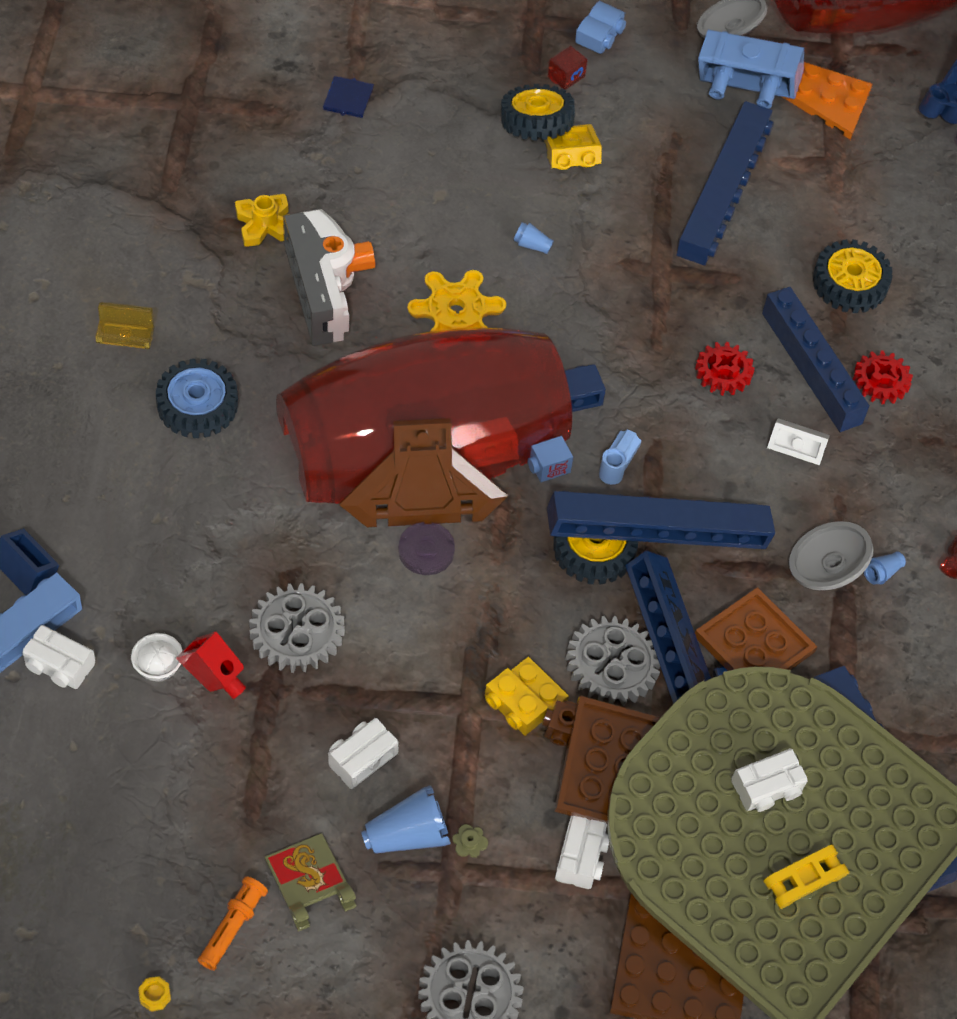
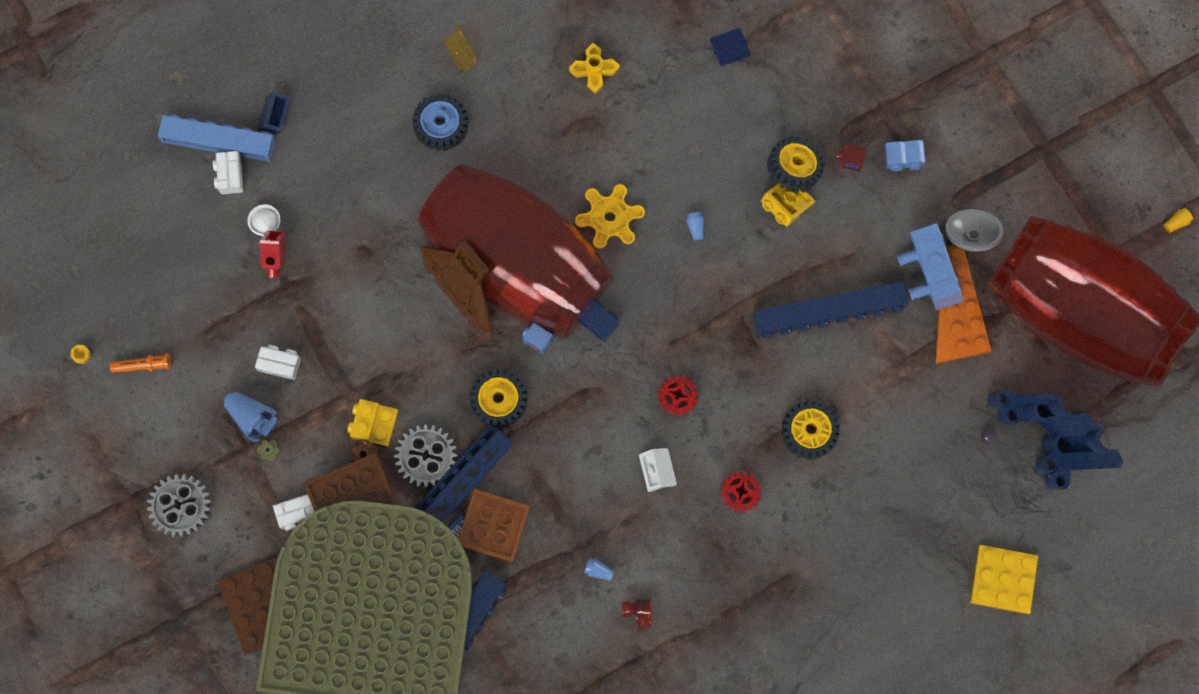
camera: 60 degrees right, 20 degrees up
(276, 615) = (329, 294): light grey gear -> none
(308, 875) = (192, 383): flag -> none
(322, 268) = (575, 122): piece -> none
(426, 548) = (432, 310): clear purple tile -> none
(618, 457) = (570, 374): light blue piece -> none
(660, 520) = (530, 426): dark blue brick -> none
(769, 780) = (385, 585): white brick -> none
(806, 876) = (344, 637): yellow plate -> none
(815, 359) = (723, 444): dark blue brick -> none
(831, 555) = (574, 528): light grey dish -> none

